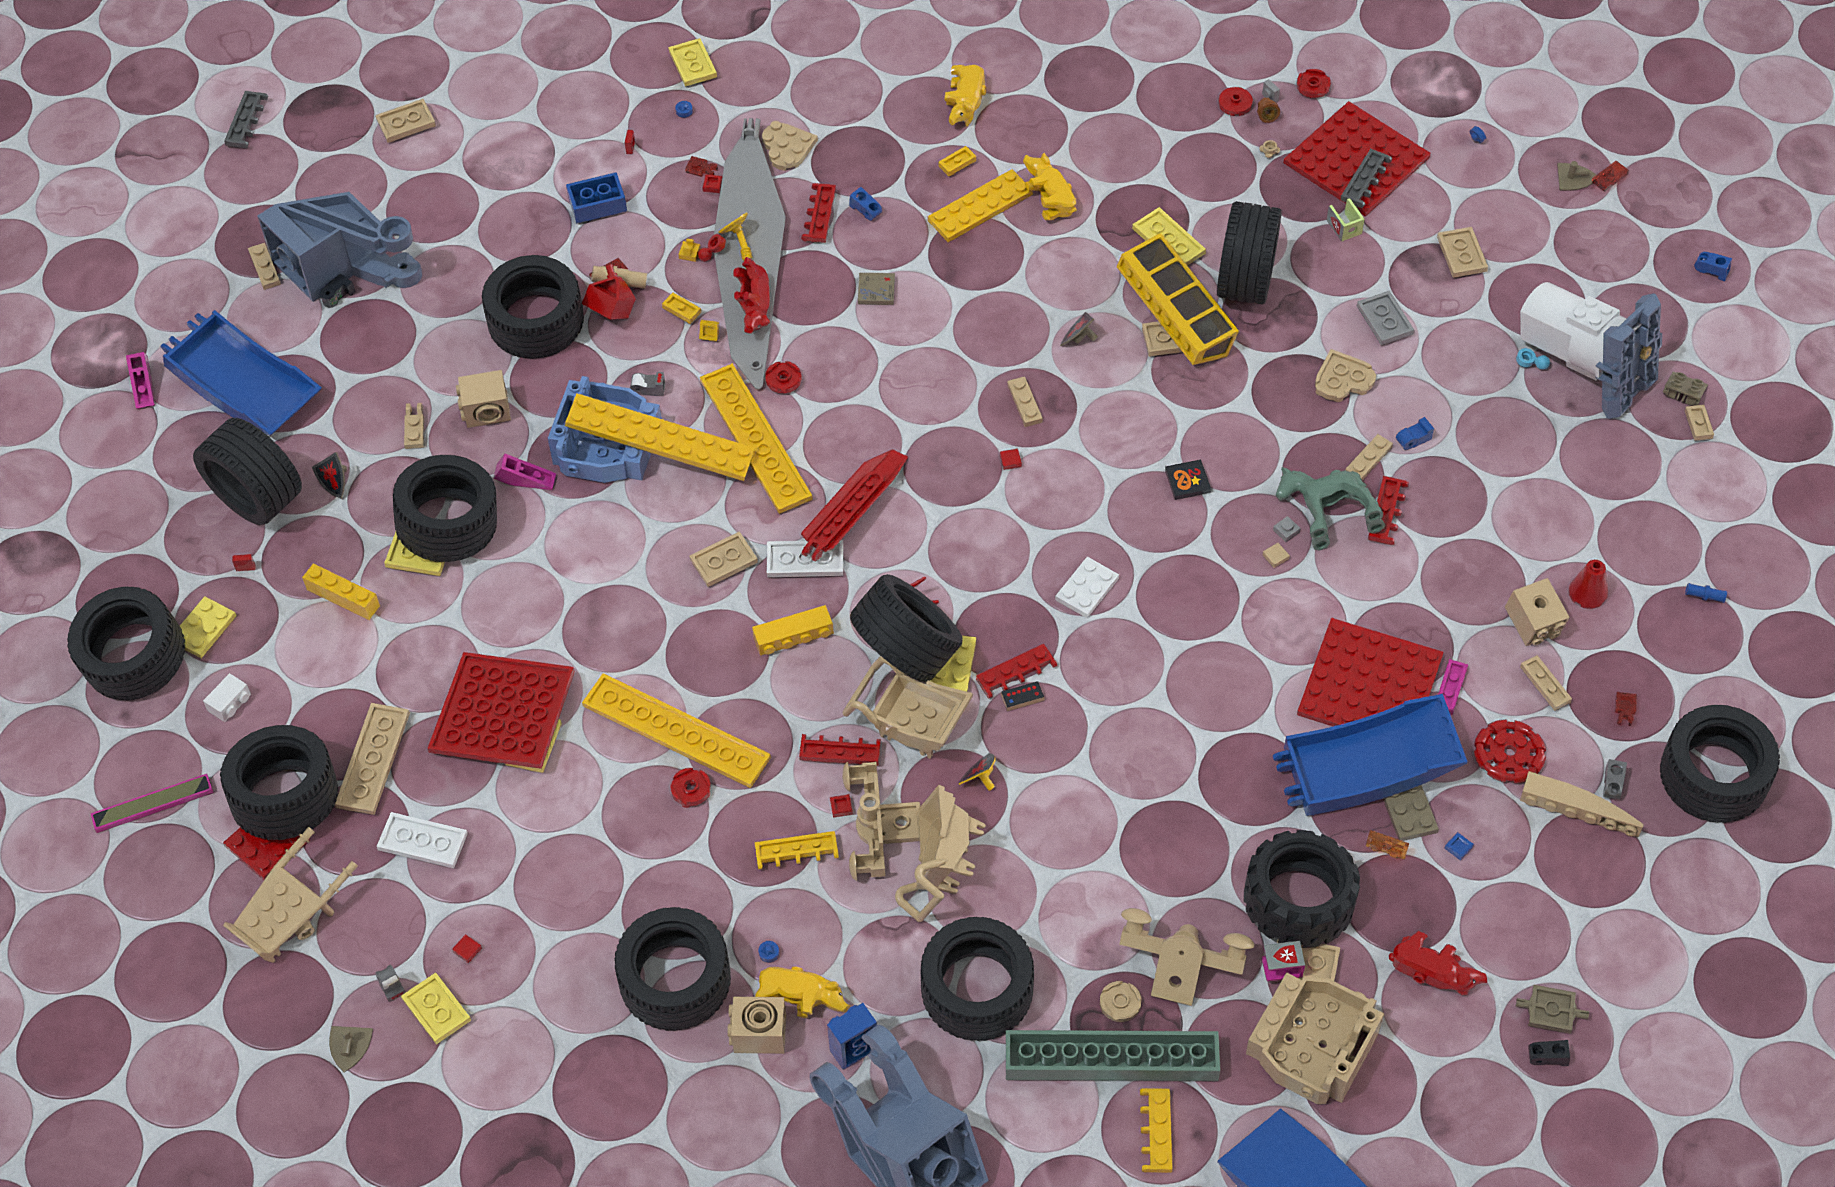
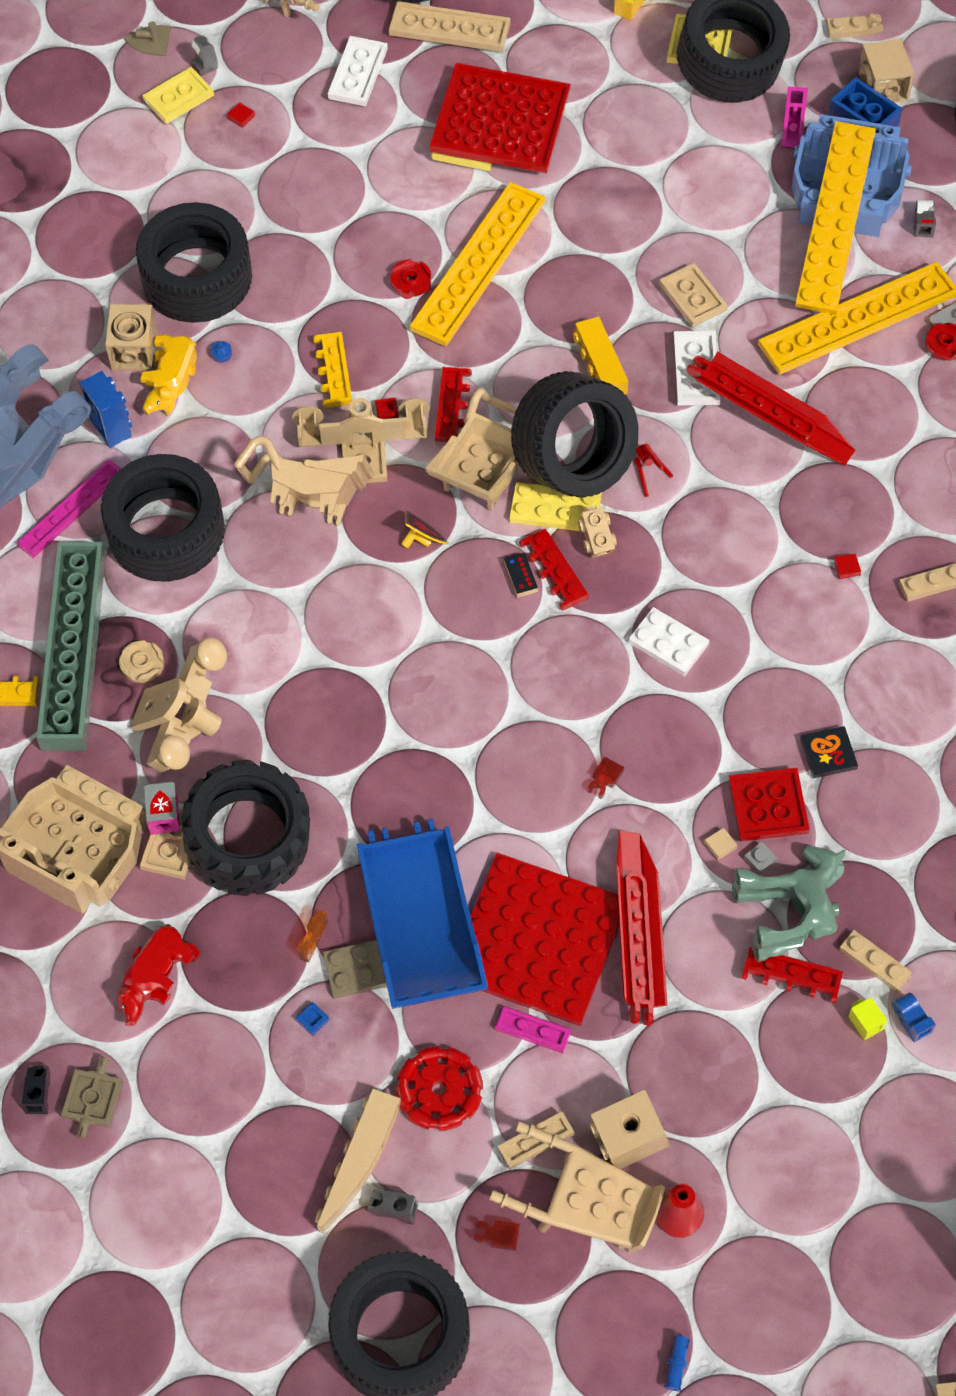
camera: 90 degrees right, 5 degrees up
(526, 418) = (865, 104): none -> blue brick
(952, 1077) = (68, 510): none -> dark pink tile
(985, 632) = (595, 526): none -> tan brick
(1218, 633) = (606, 775): none -> clear red plate
(1239, 520) = (768, 804): none -> red plate
(1357, 608) = (640, 928): none -> red hinge
(1420, 463) = (867, 1018): none -> neon yellow brick
(1596, 632) = (592, 1198): none -> tan piece

